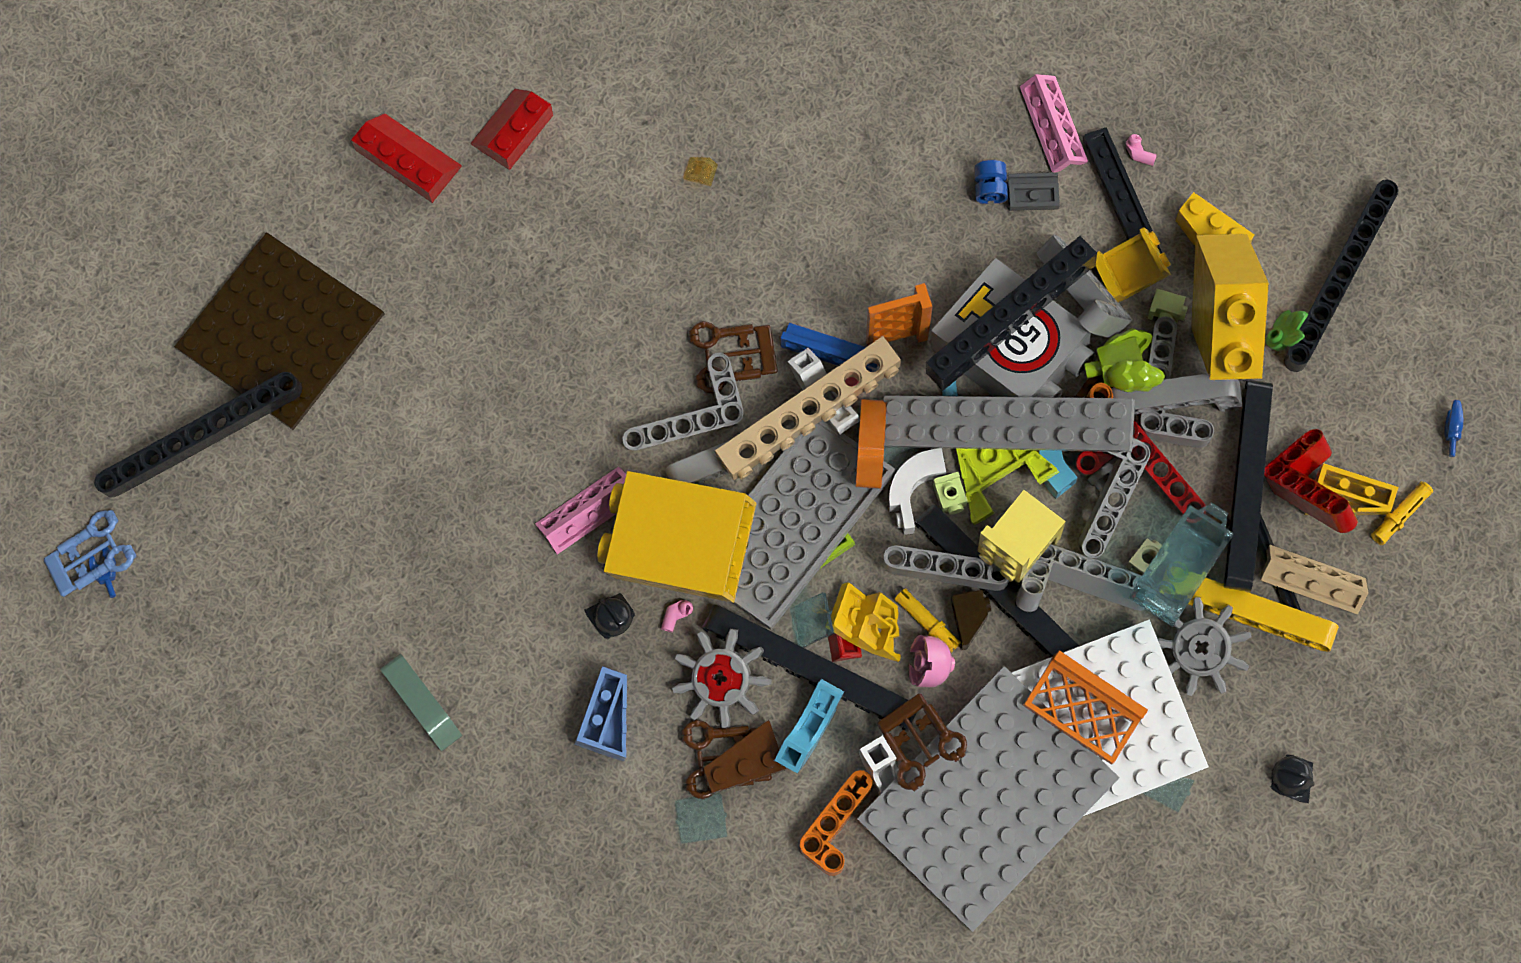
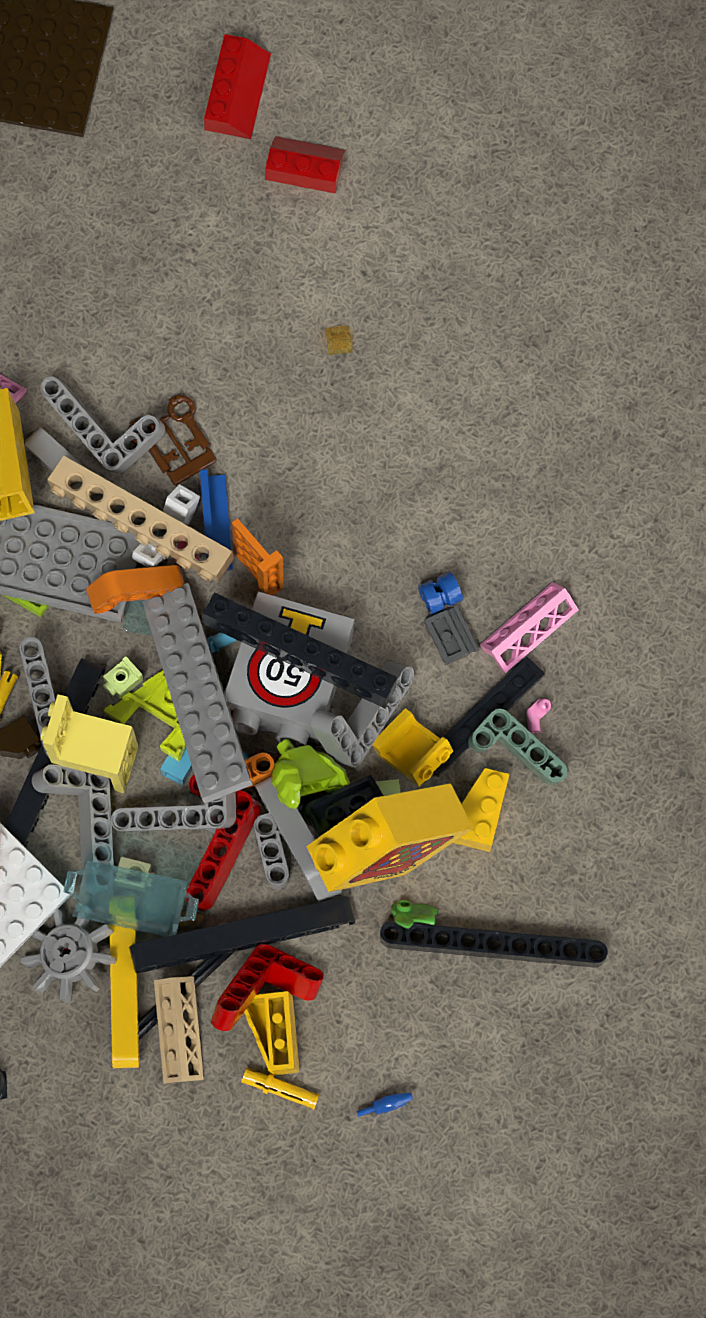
camera: 60 degrees right, 0 degrees up
(915, 471) = (119, 636): white arch -> none
(1172, 173) = (521, 751): none -> sand green beam
(1175, 338) = (340, 804): none -> black plate

